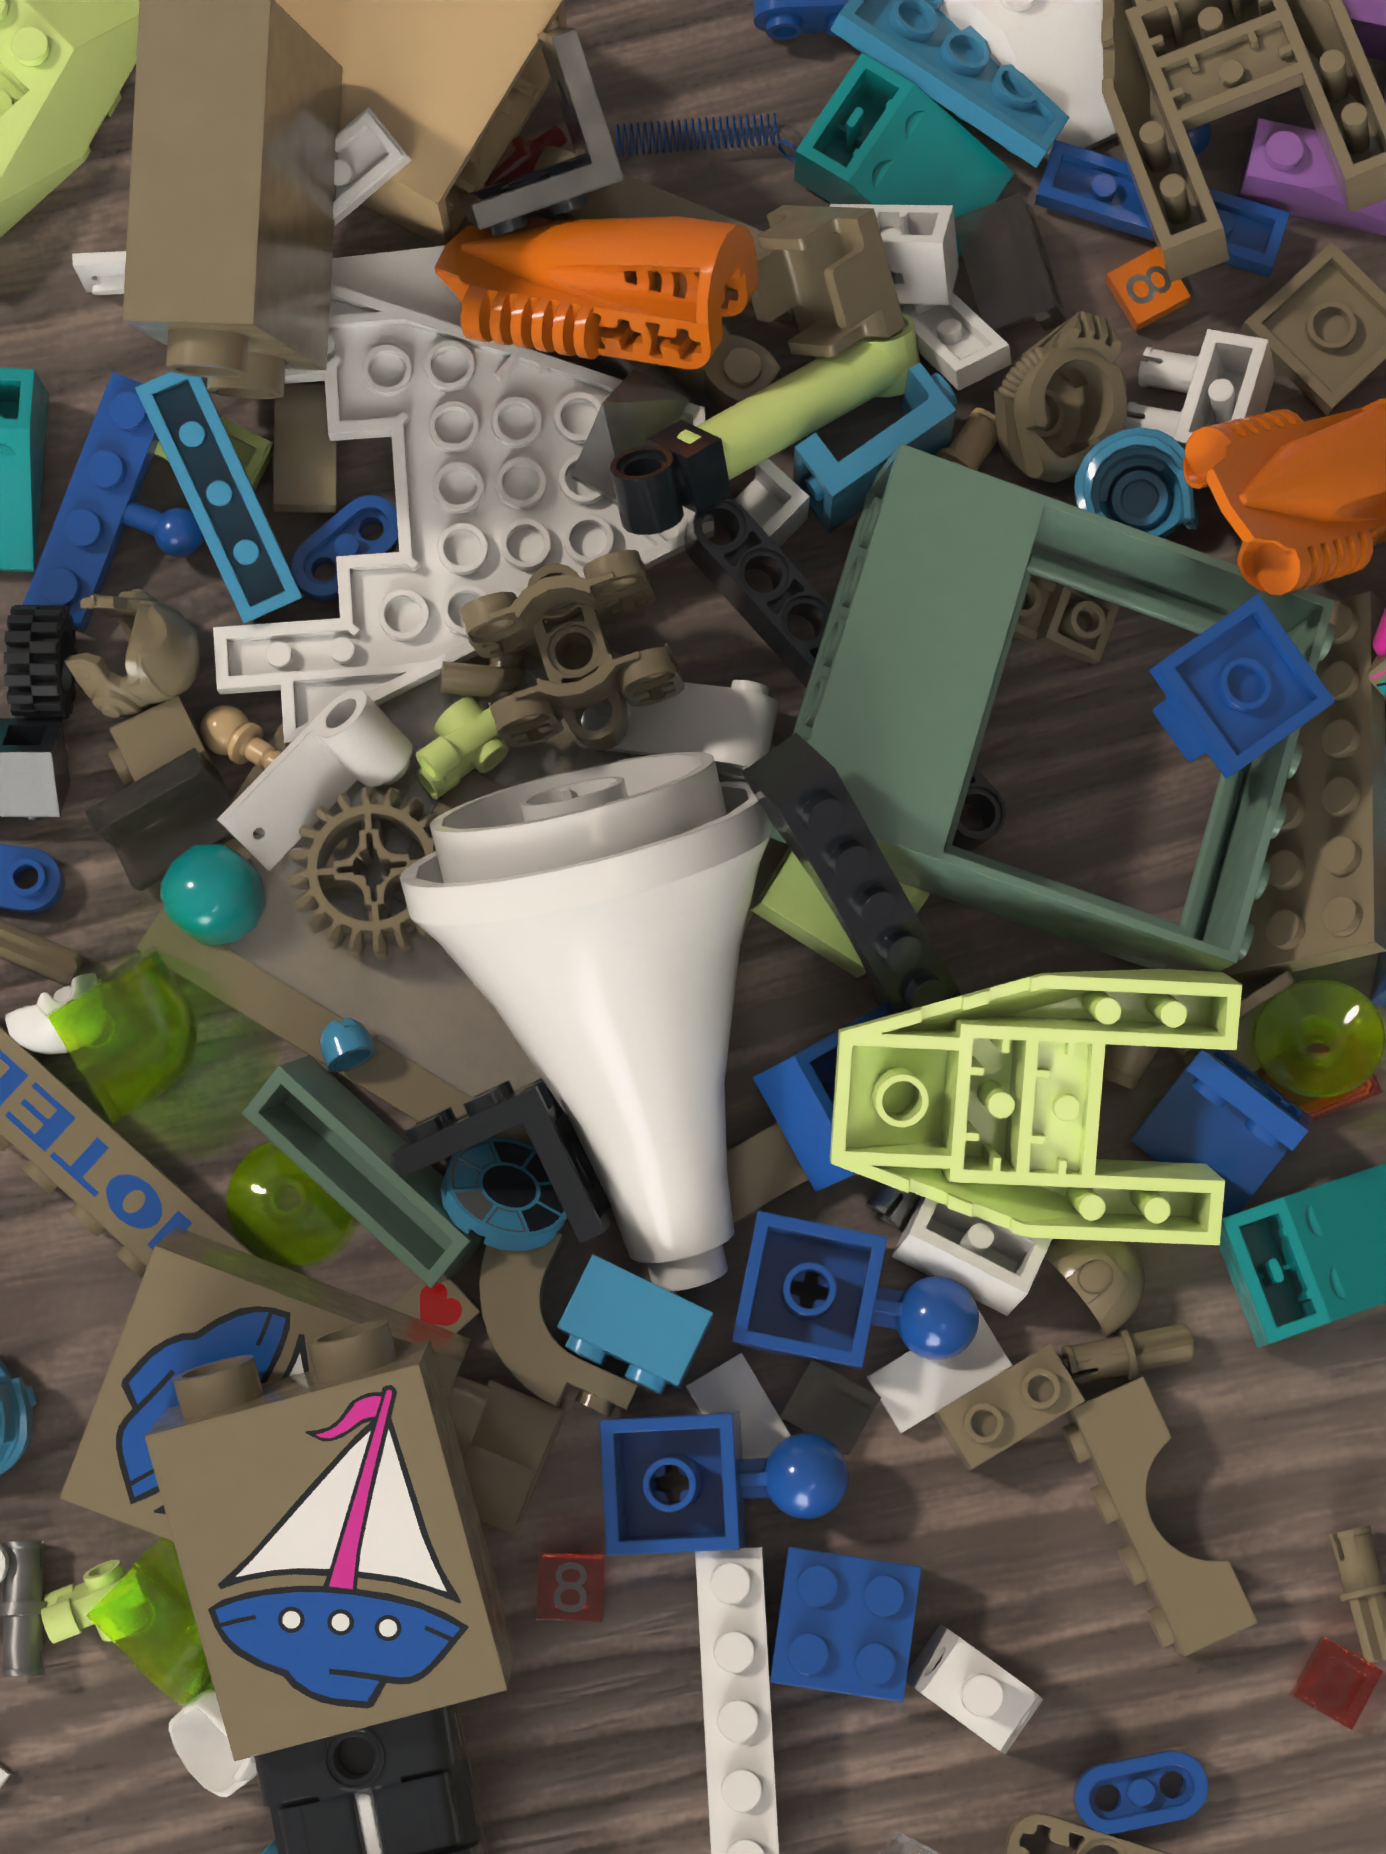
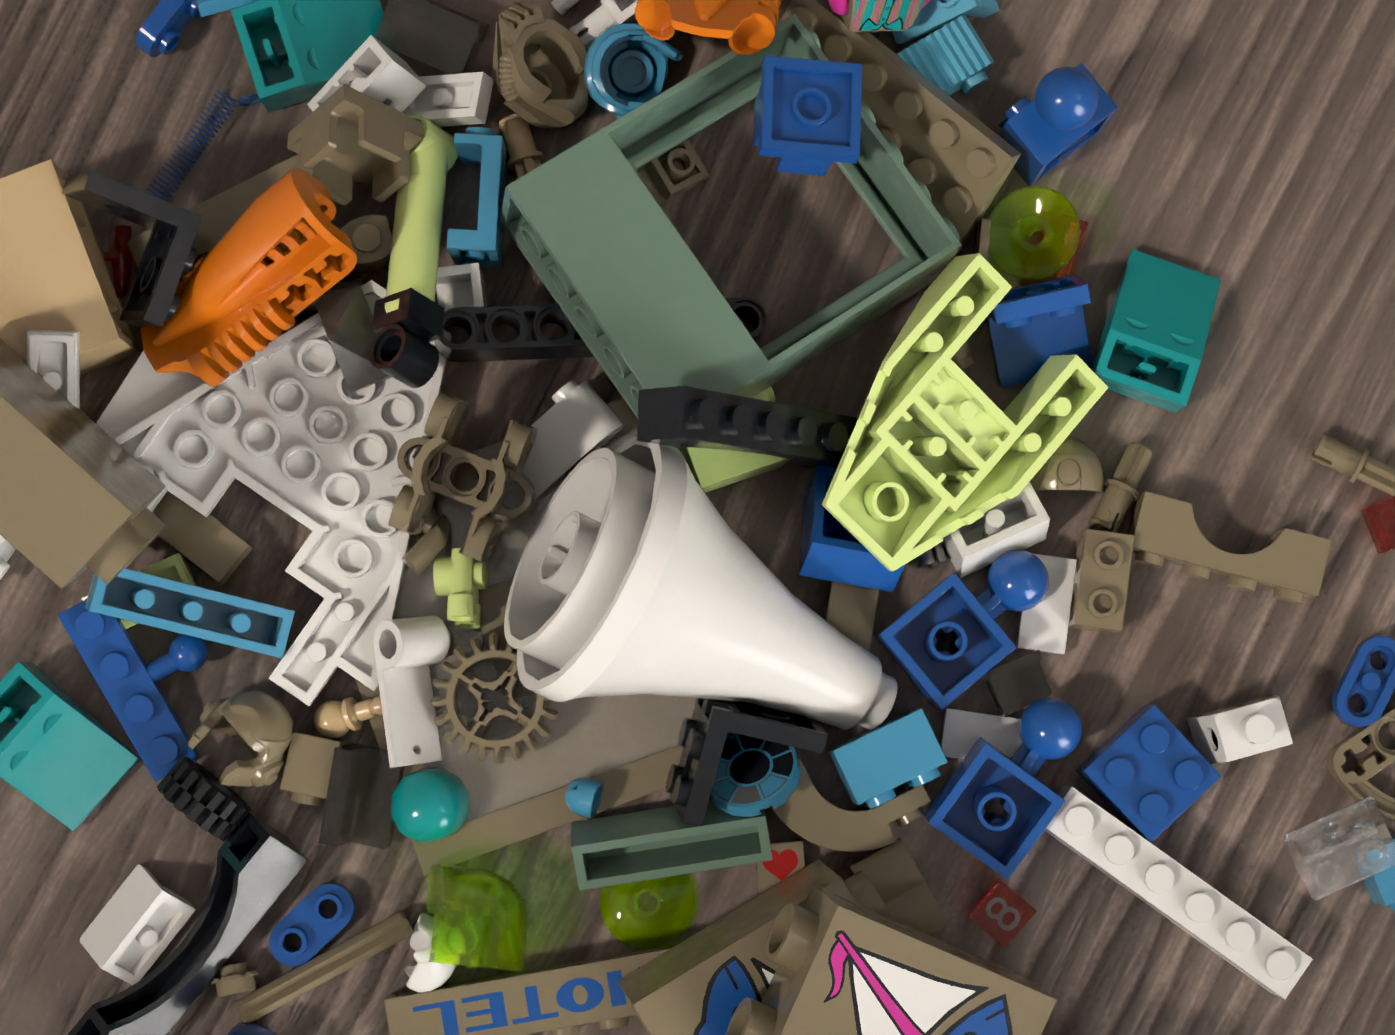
camera: 60 degrees left, 5 degrees up
(343, 538) = (273, 559): blue plate -> none

